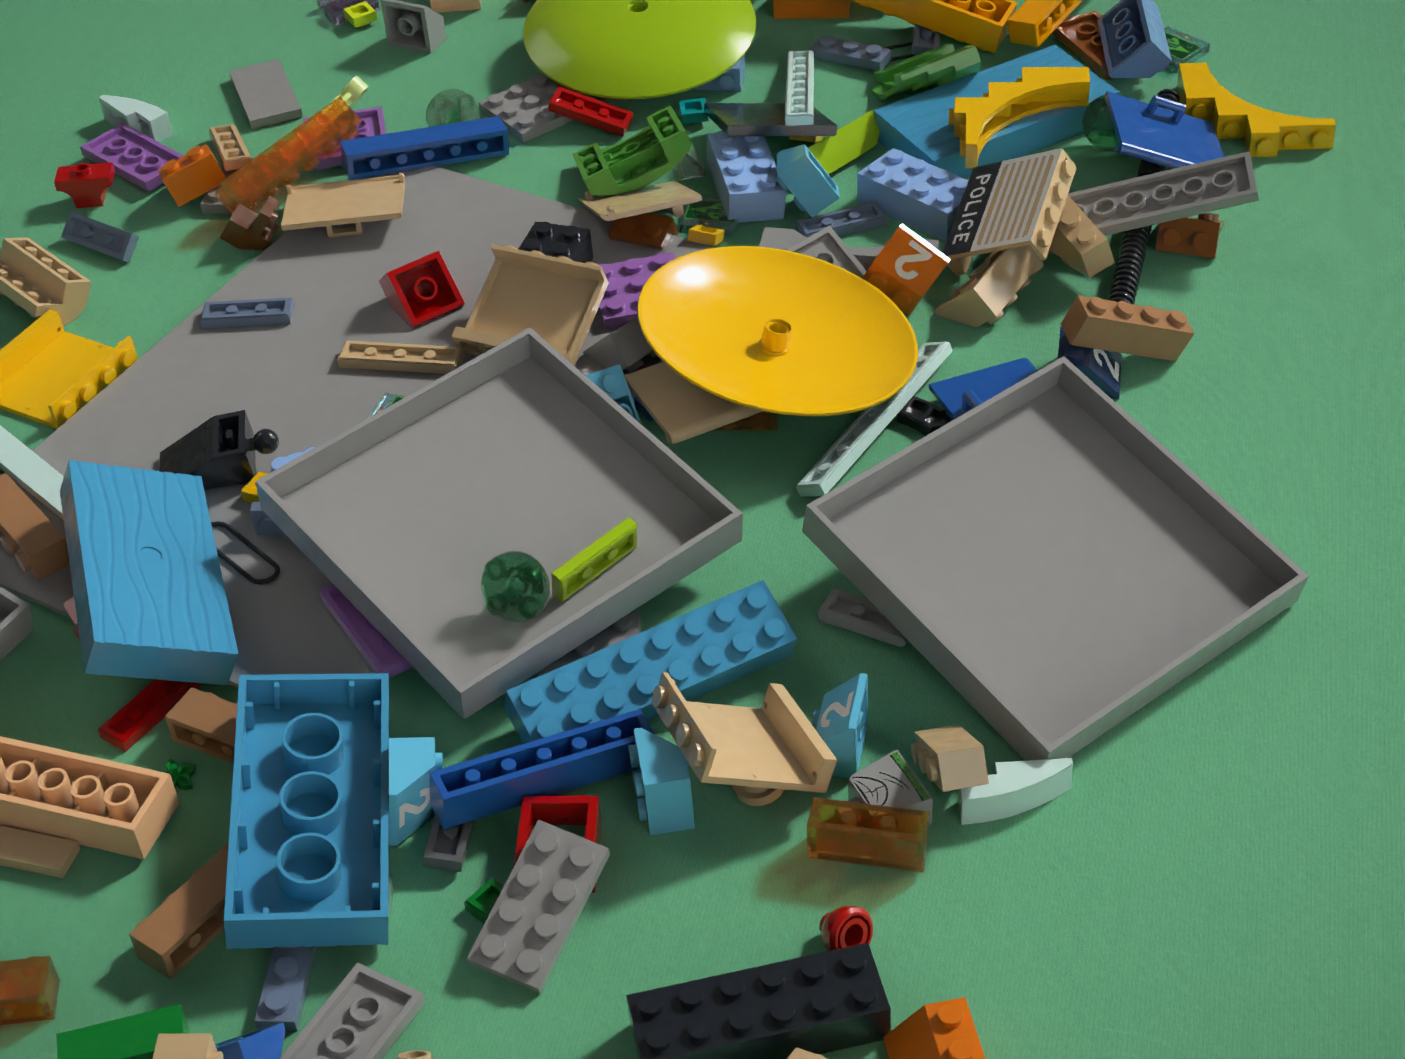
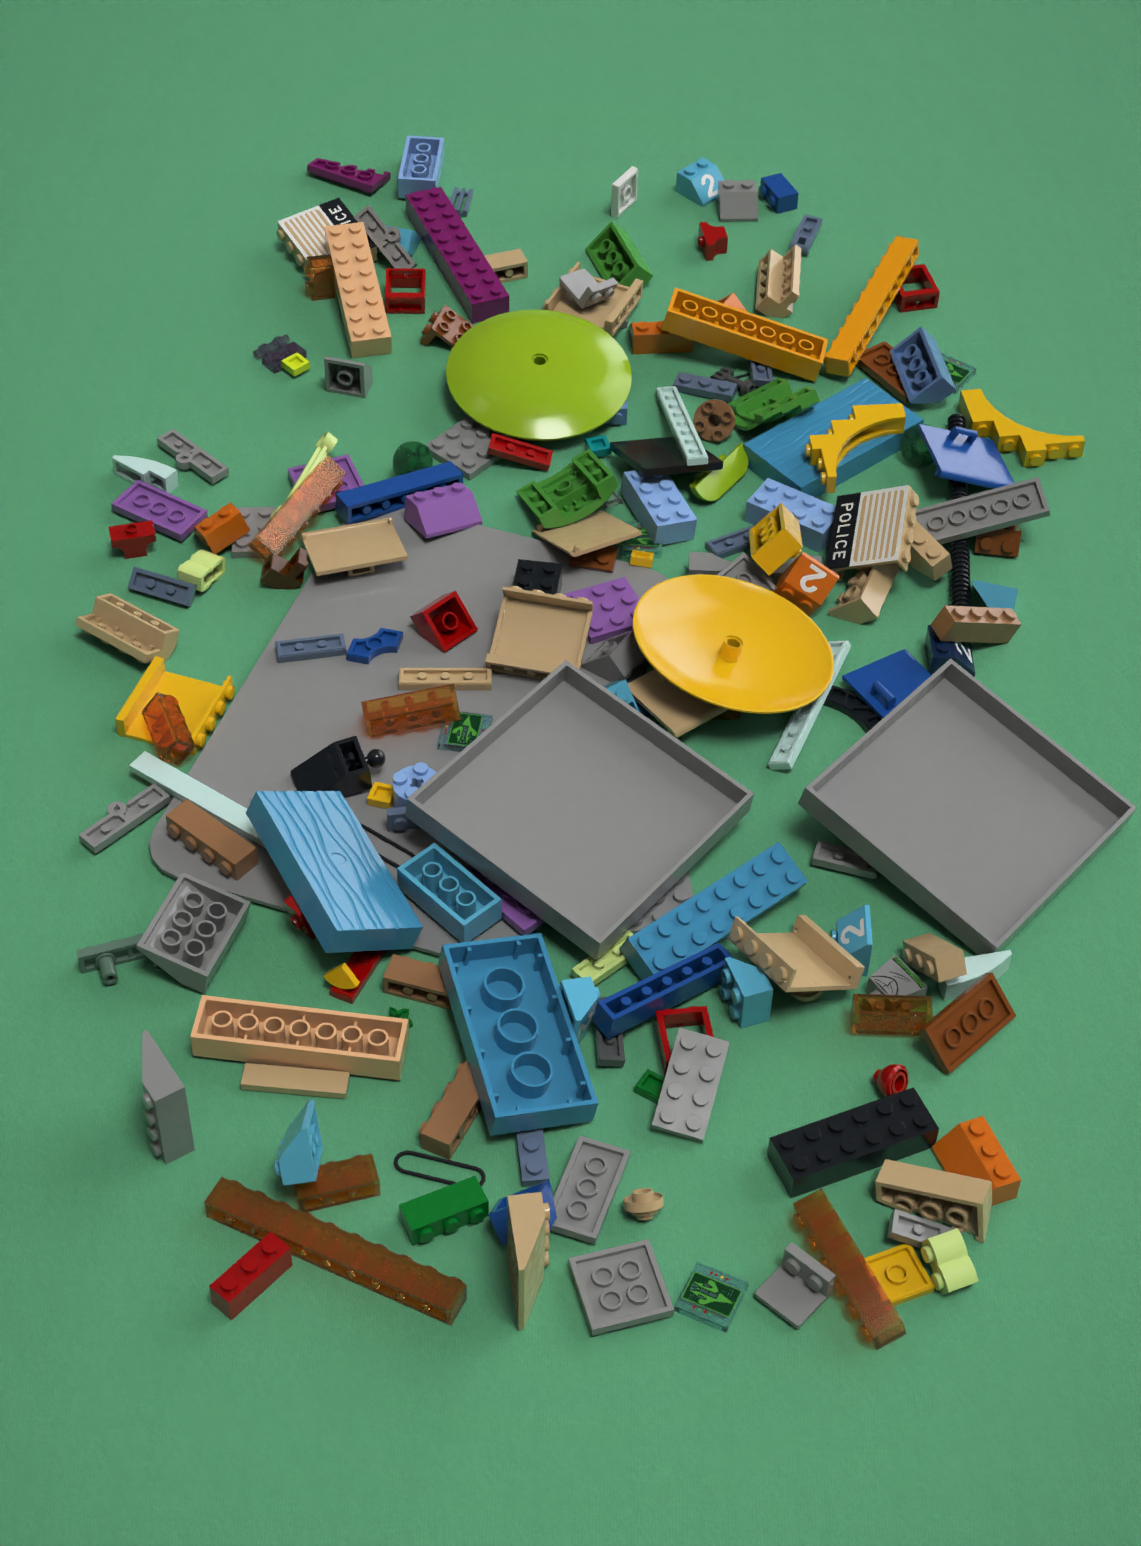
camera: 15 degrees left, 5 degrees up
(27, 392) = (168, 728): none -> clear orange brick
(98, 987) = (435, 1159): none -> black piece
(114, 712) = (342, 977): none -> yellow tile
(154, 220) = (202, 569): none -> yellowish green brick
(197, 102) = (192, 456): none -> light grey hinge
(229, 146) = (233, 492): tan tile -> none
(265, 94) = (243, 444): light grey tile -> none
(295, 614) = (449, 893): none -> medium azure brick
(335, 388) = (411, 710): none -> clear orange brick
(339, 311) = (368, 648): none -> blue tile
(463, 736) = (605, 965): none -> yellowish green plate
(468, 167) = (442, 510): none -> medium lavender slope
(515, 586) = (614, 862): clear green plate -> none
(594, 560) = (659, 836): lime tile -> none
(806, 179) = (711, 509): medium azure slope -> none
(846, 85) = (714, 420): none -> medium nougat plate
(876, 213) = (775, 539): none -> yellow brick
(885, 41) = (727, 374): none -> dark grey hinge
(980, 857) = (967, 1023): none -> dark orange plate
(1172, 296) = (996, 595): none -> medium azure slope

